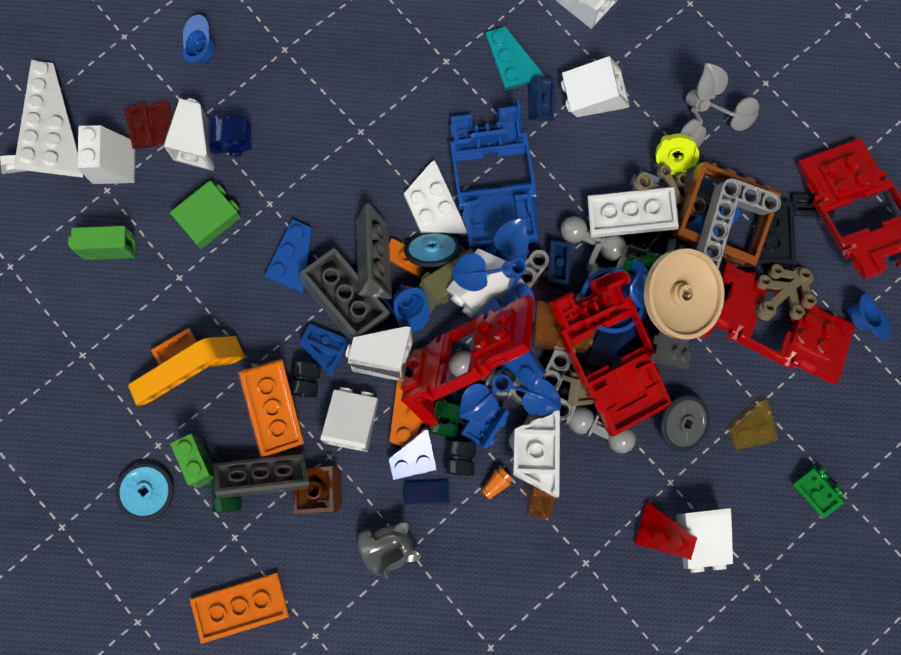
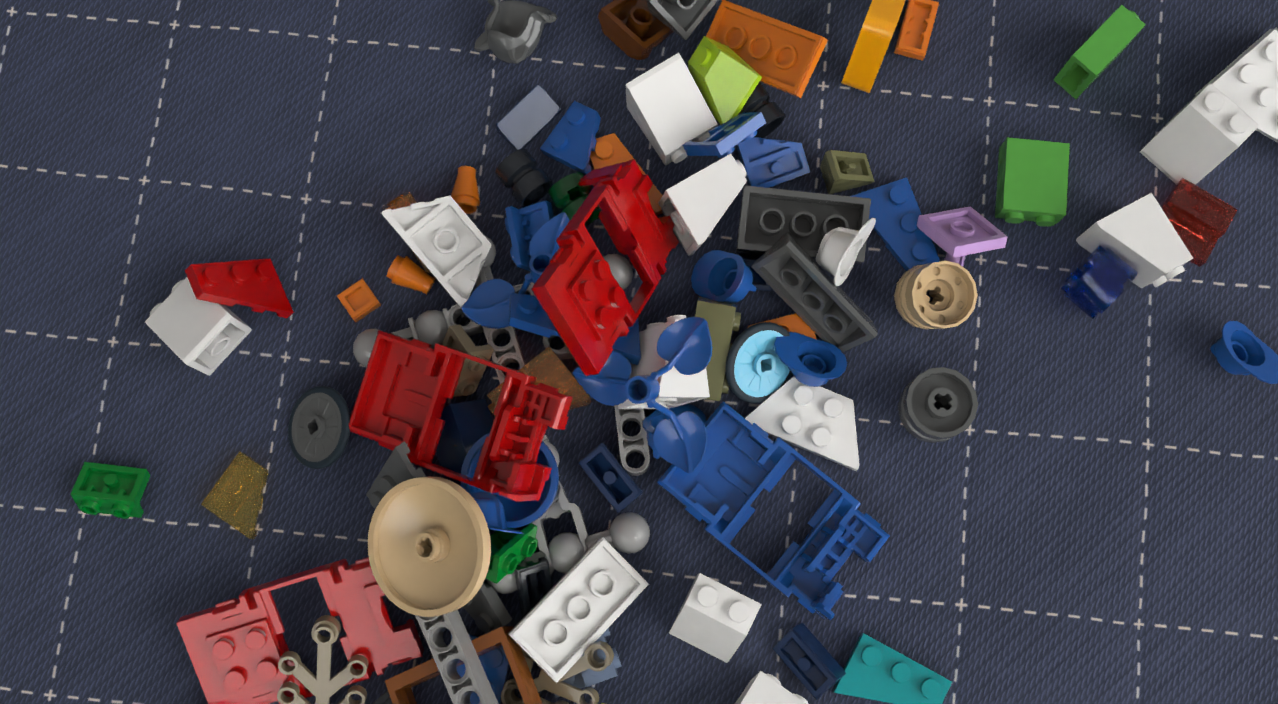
camera: 145 degrees right, 0 degrees up
(269, 219) = (961, 233): none -> lavender tile
(291, 307) = (845, 170): none -> olive slope
(308, 408) = (722, 78): none -> lime slope
(315, 200) = (952, 294): none -> tan wheel
(338, 373) = (727, 135): none -> blue wing
(342, 259) = (840, 250): none -> white piece
(364, 140) = (951, 392): none -> dark grey wheel
(405, 228) = (810, 359): none -> blue piece
(567, 154) = (714, 618): none -> white slope
(568, 464) = (410, 275): none -> orange cone
(605, 476) = (359, 300): none -> orange tile

